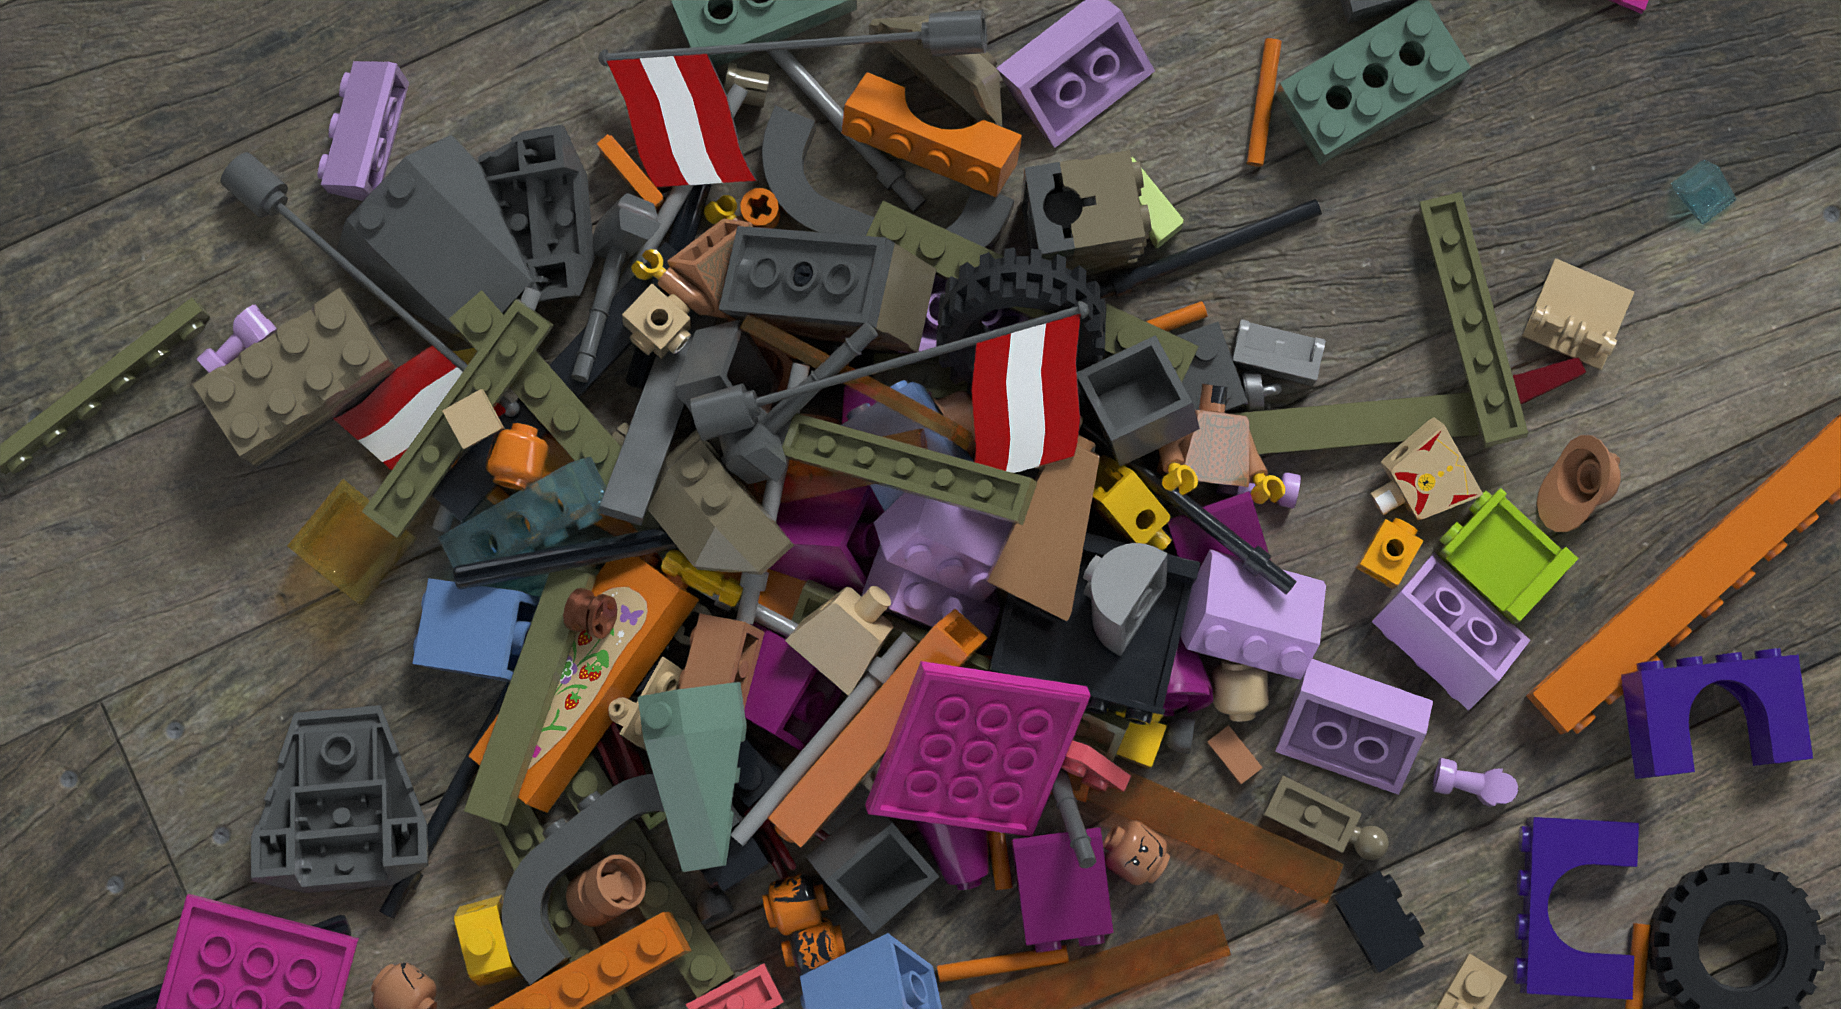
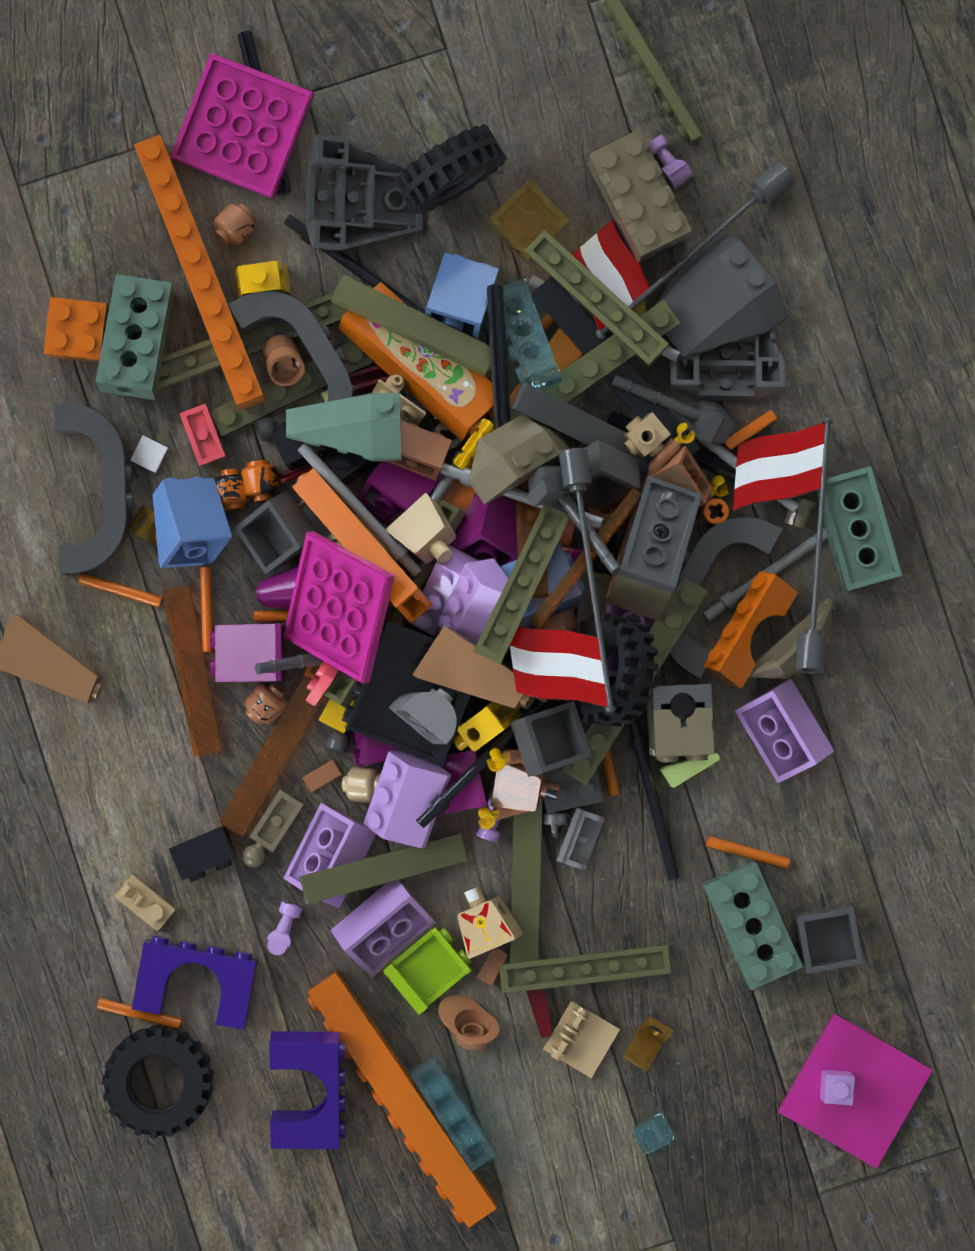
camera: 95 degrees right, 5 degrees up
(284, 666) = (450, 169): none -> black tyre
(363, 129) = (800, 258): lavender slope -> none
(473, 419) = (593, 307): tan tile -> none
(517, 457) = (567, 333): orange head -> none
(590, 613) = (460, 369): copper wheel -> none
(1365, 640) = (382, 868): none -> olive tile
(1379, 563) = (437, 883): light orange brick -> none
(1488, 461) = (491, 966): none -> nougat piece
(1570, 214) = (647, 1043): none -> pearl gold bracket
(1718, 489) = (453, 1113): none -> clear light blue brick

